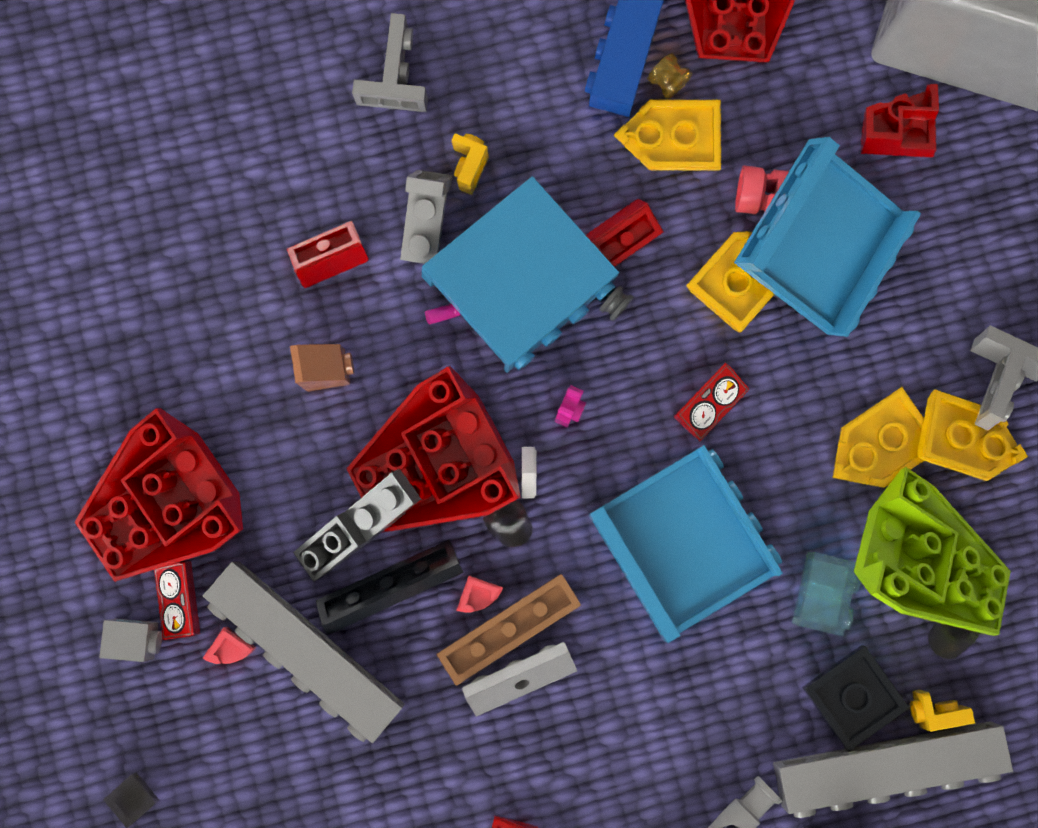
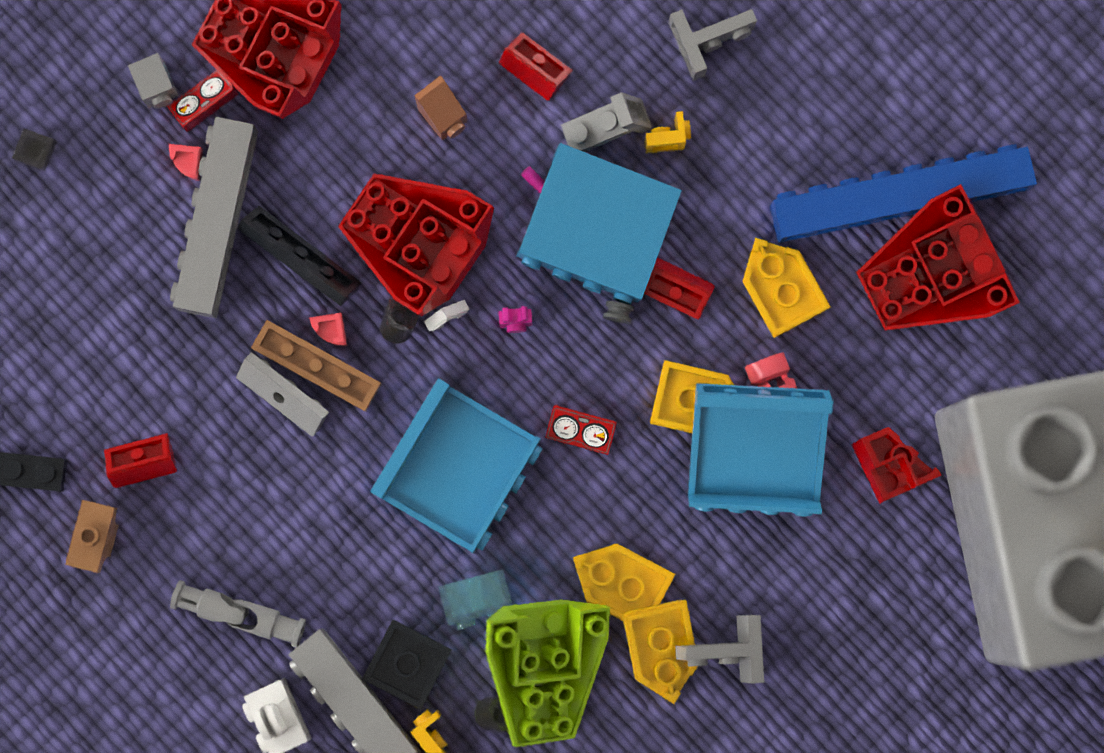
camera: 55 degrees right, 0 degrees up
(357, 525) = (332, 204): dark grey slope -> none
(669, 76) = (826, 256): clear yellow wheel -> none

